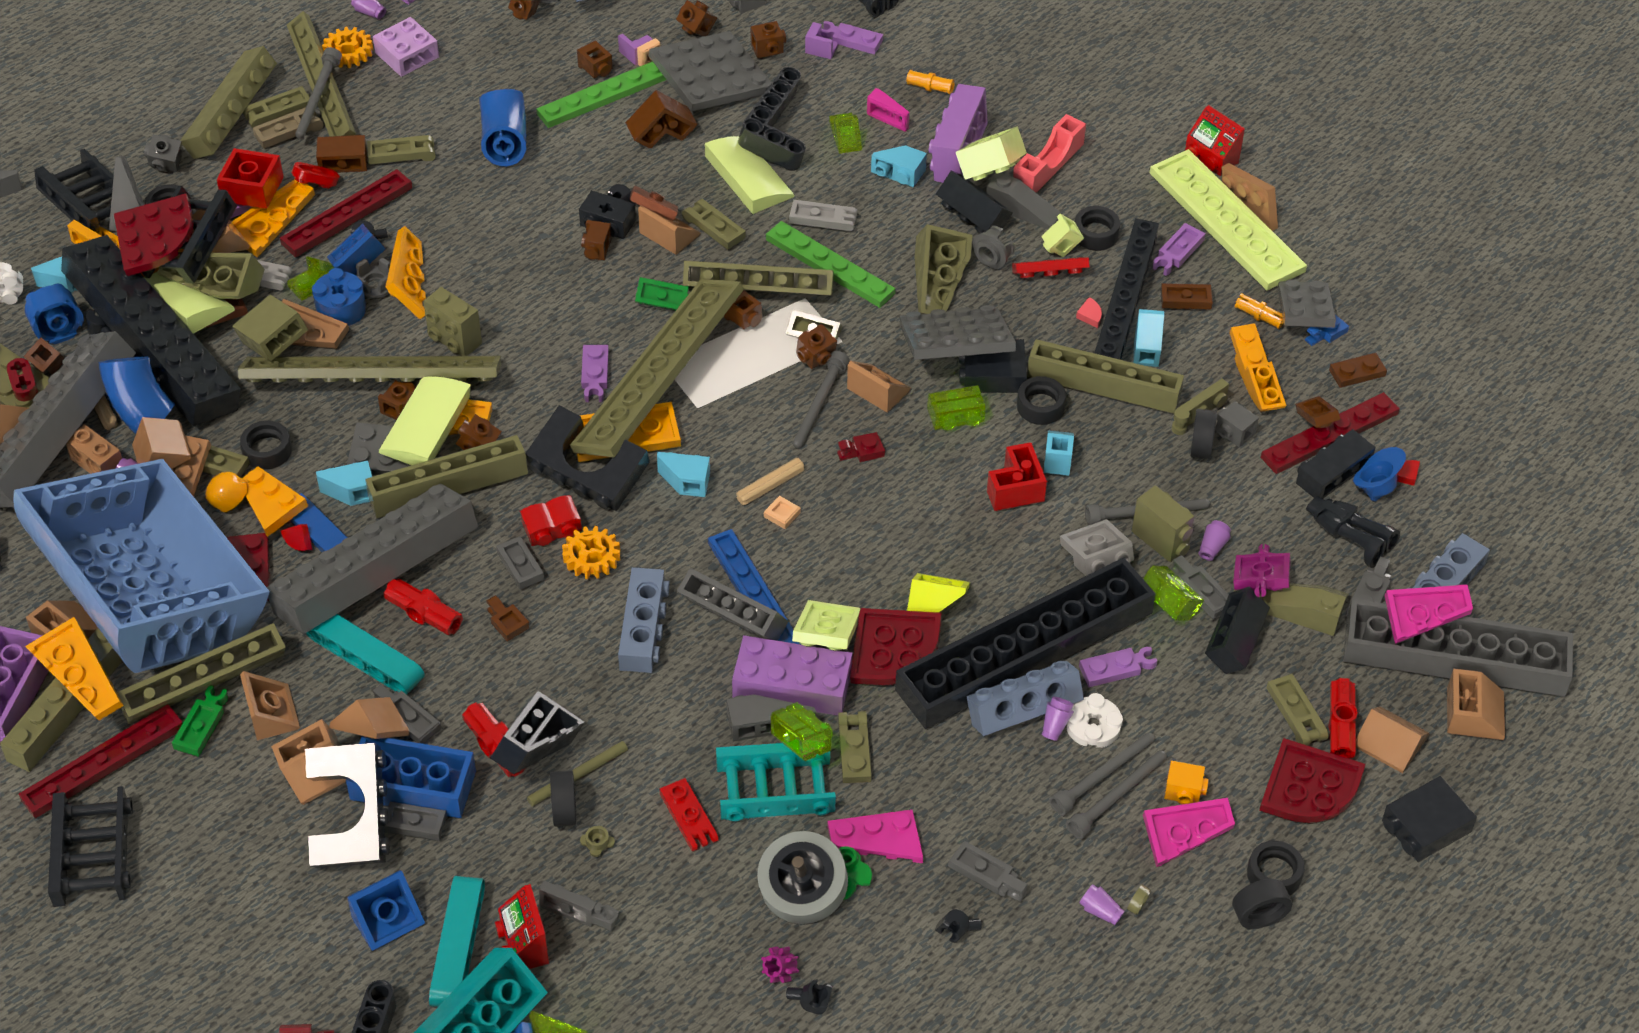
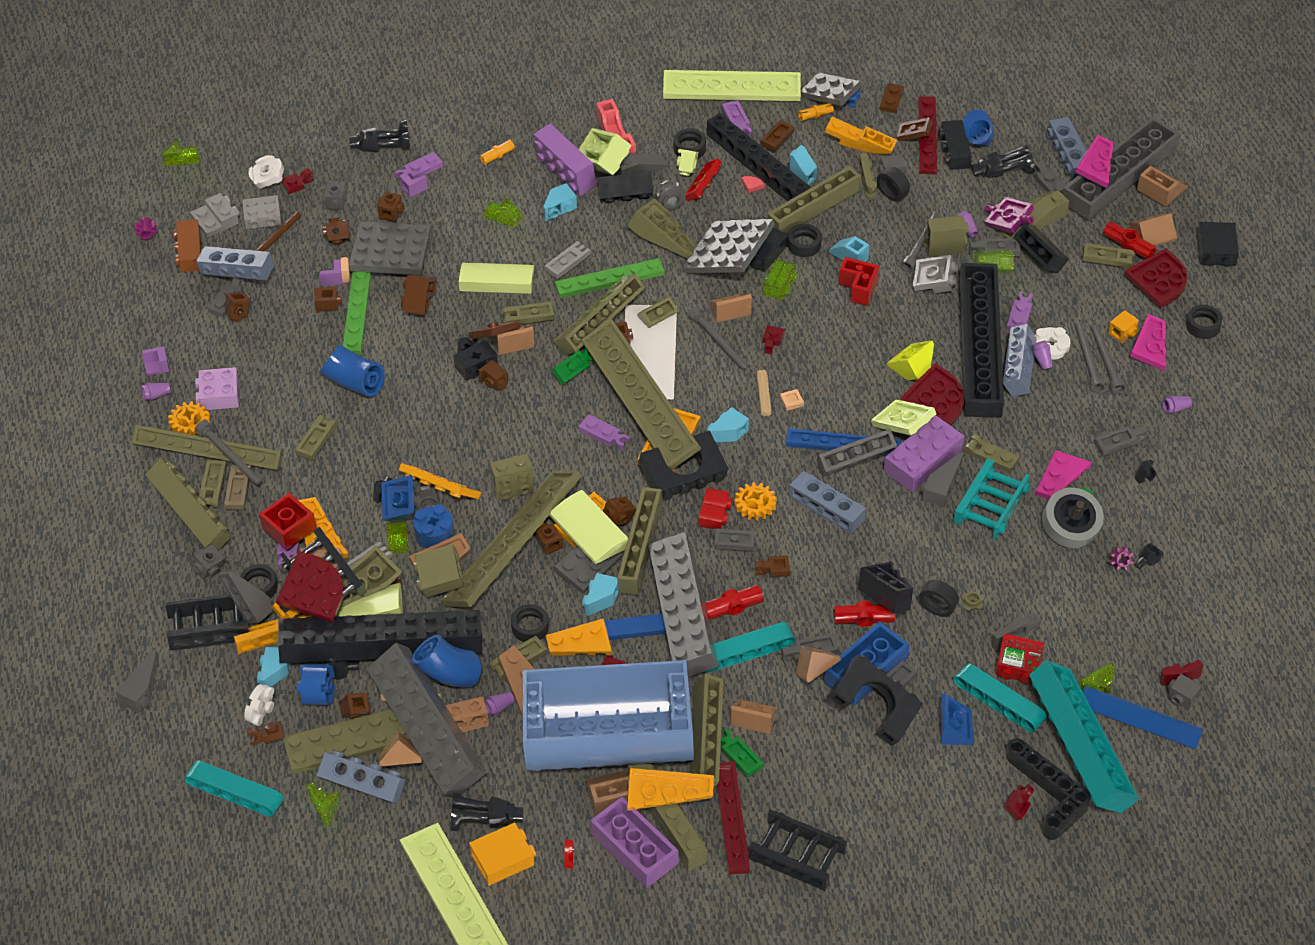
camera: 55 degrees left, 0 degrees up
(22, 379) = (364, 727): dark red beam -> none
(161, 440) = (500, 674): medium nougat slope -> none
(226, 491) = (555, 657): light orange hair -> none
(292, 760) = (817, 709): medium nougat slope -> none
(297, 537) = (624, 641): red tile -> none
(311, 173) = (304, 489): red plate -> none
(342, 153) = (294, 468): reddish brown brick -> none
(346, 213) = (351, 491): dark red plate -> none
(581, 770) = (916, 590): olive bar -> none
(688, 813) = (984, 551): red hinge -> none
(758, 131) = (469, 250): black beam -> none
(801, 731) = (978, 464): clear neon green brick -> none
(815, 346) = (680, 315): reddish brown brick -> none
(887, 110) = (500, 183): dark pink slope -> none
(1139, 899) = (1184, 386): olive tile -> none
(1215, 140) = (672, 52): red slope -> none
(1253, 192) = (729, 60): medium nougat wing -> none
(1262, 903) = (1227, 336): black tyre -> none

